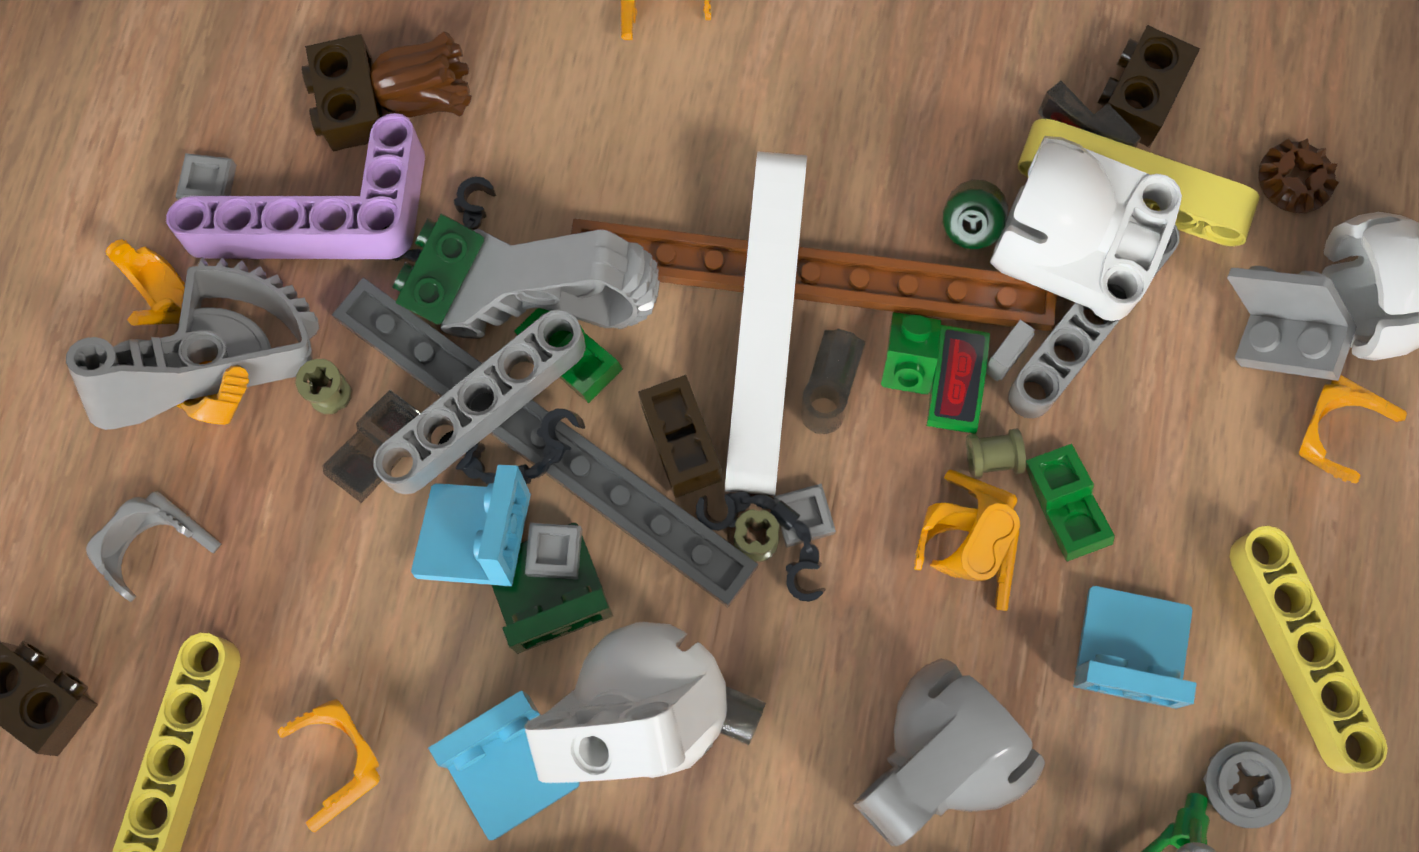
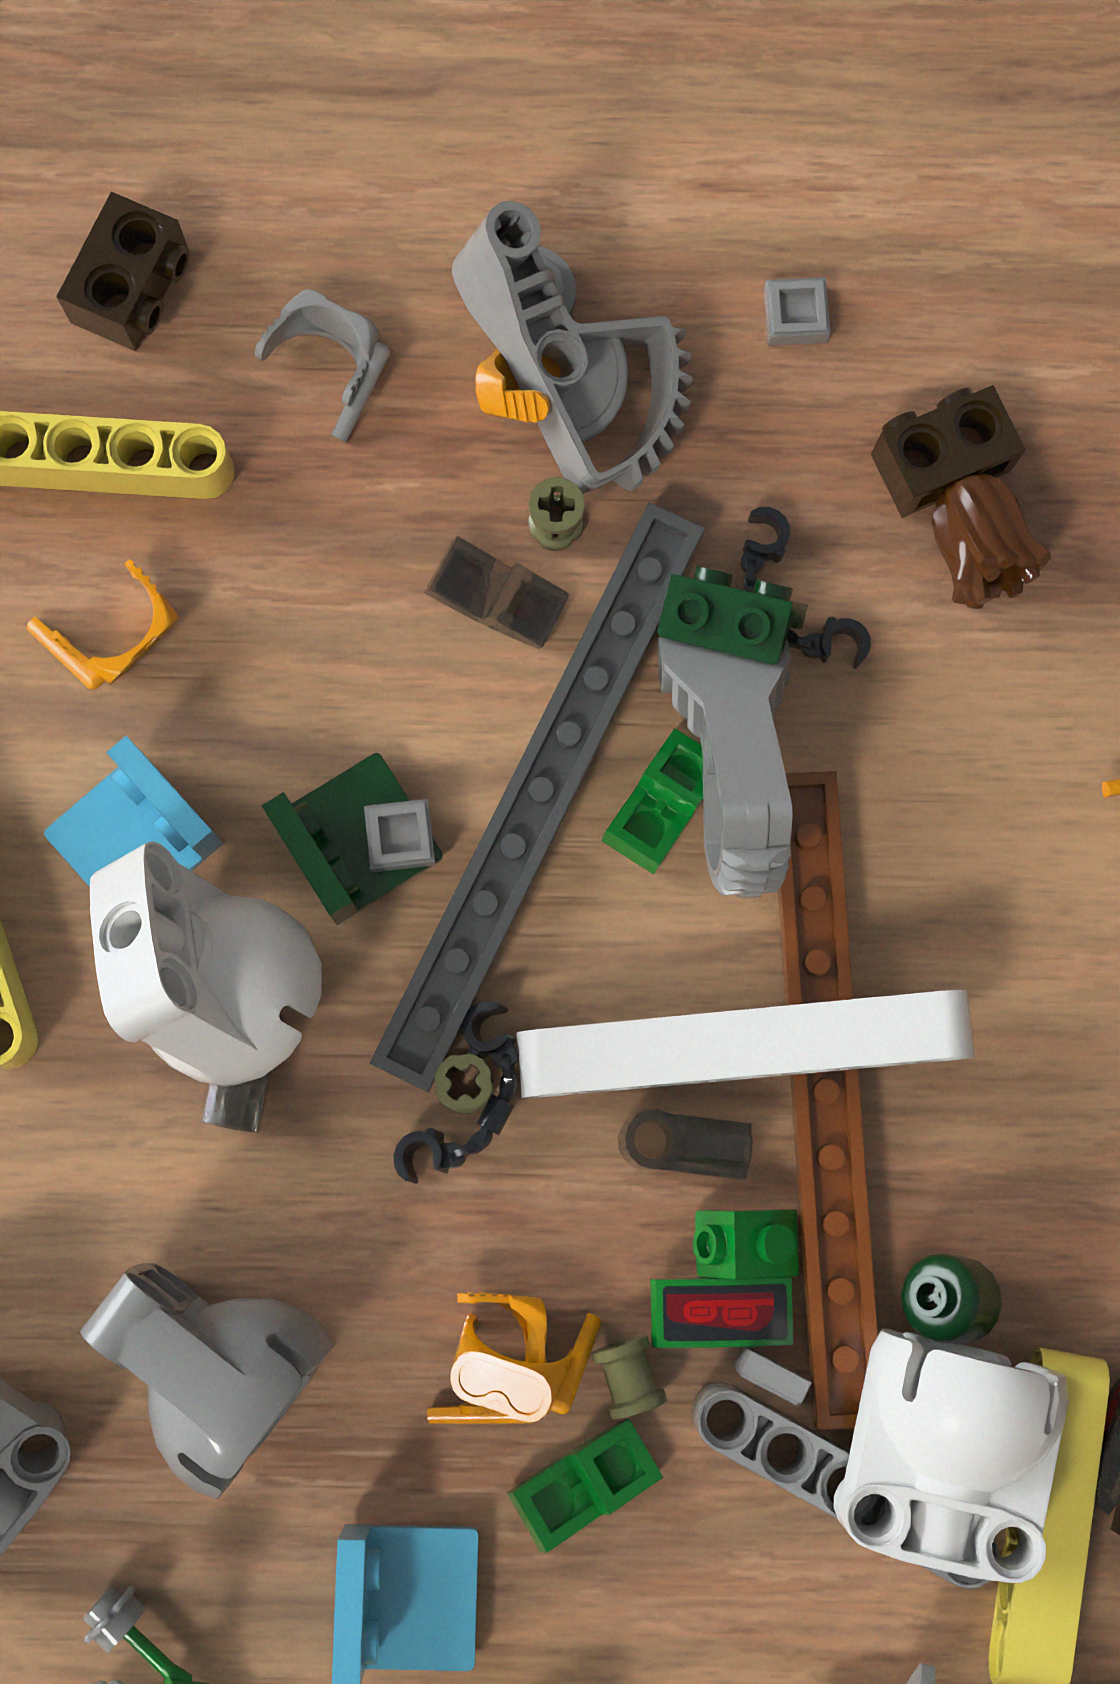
camera: 70 degrees right, 5 degrees up
(153, 279) = (653, 287): light orange helmet -> none
(307, 224) = (769, 455): lavender beam -> none
(473, 426) = (554, 678): light grey beam -> none
(473, 531) = (406, 733): medium azure bracket -> none
(552, 452) = (486, 768): black piece -> none
(680, 436) = (570, 962): dark brown brick -> none
(814, 512) = (514, 1147): light grey tile -> none

